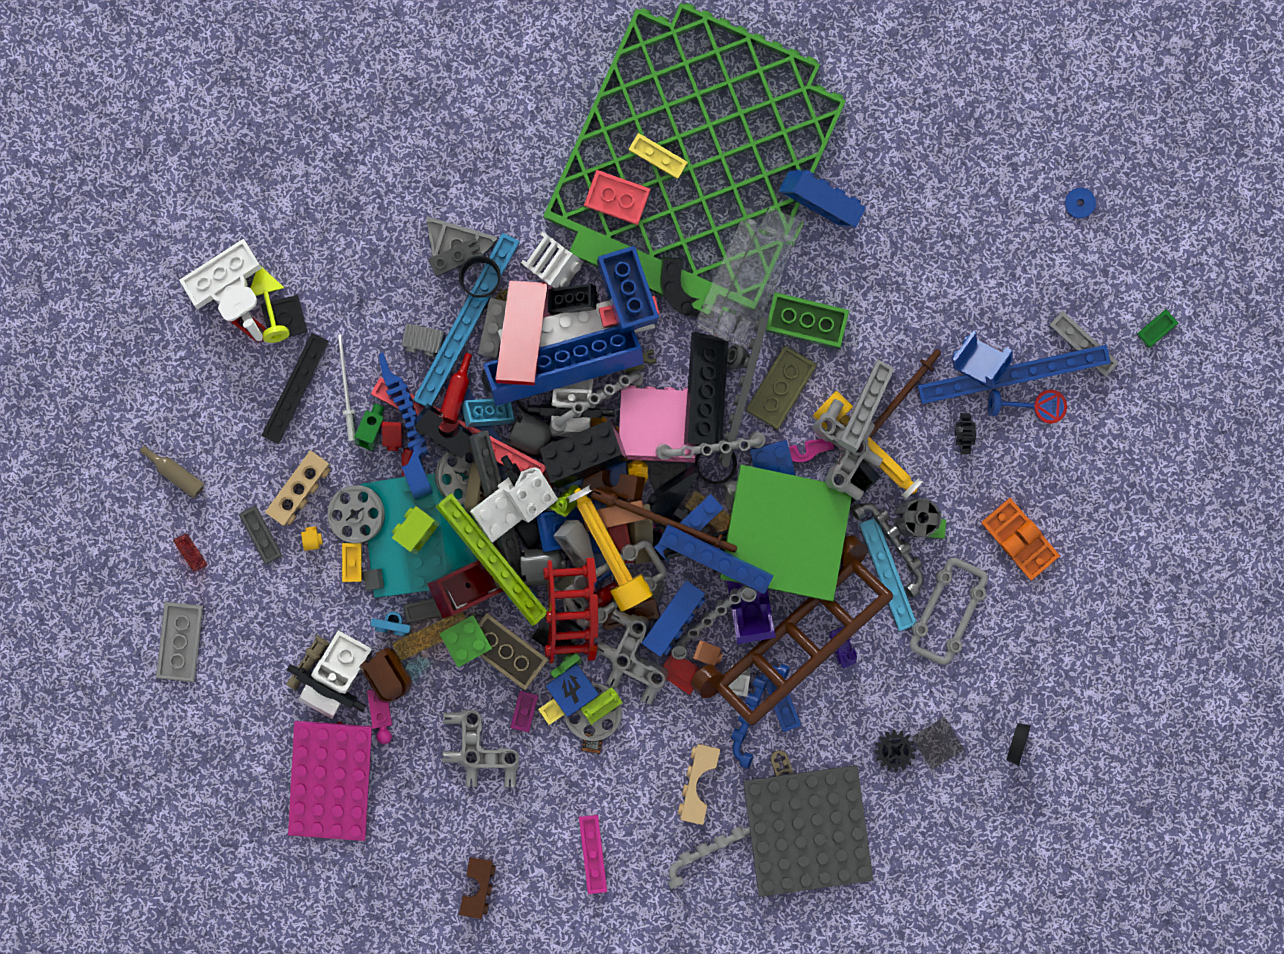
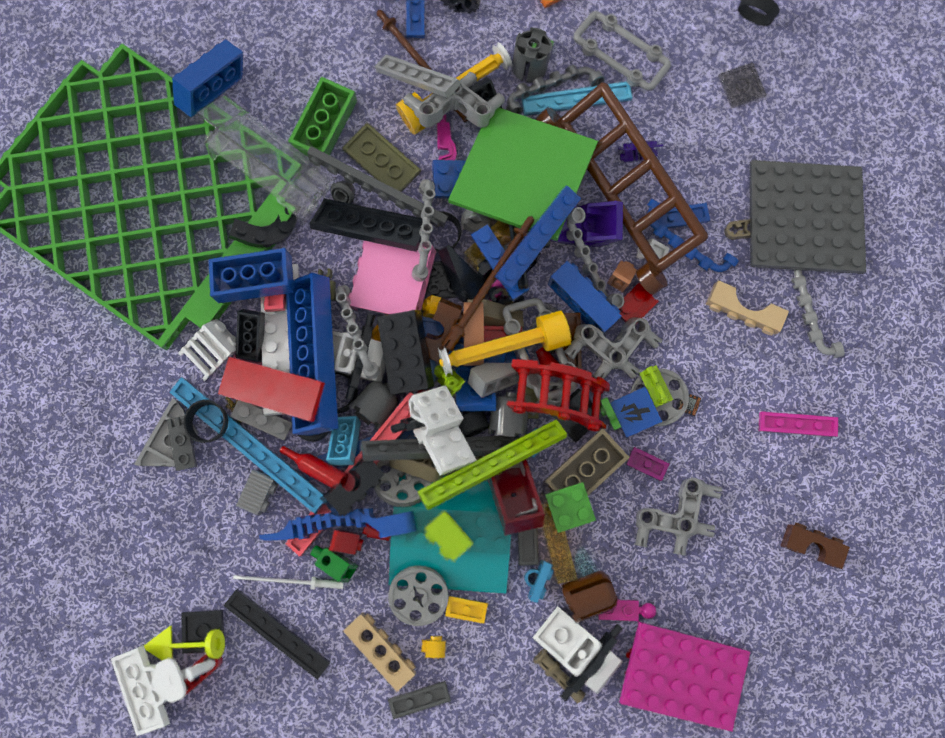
camera: 85 degrees left, 5 degrees down
(373, 579) = (488, 590): dark grey tile -> none
(551, 711) = (652, 437): light yellow plate -> none
(617, 197) = (160, 271): coral tile -> none
(658, 156) = (128, 224): light yellow plate -> none
(901, 756) = (742, 130): black gear -> none

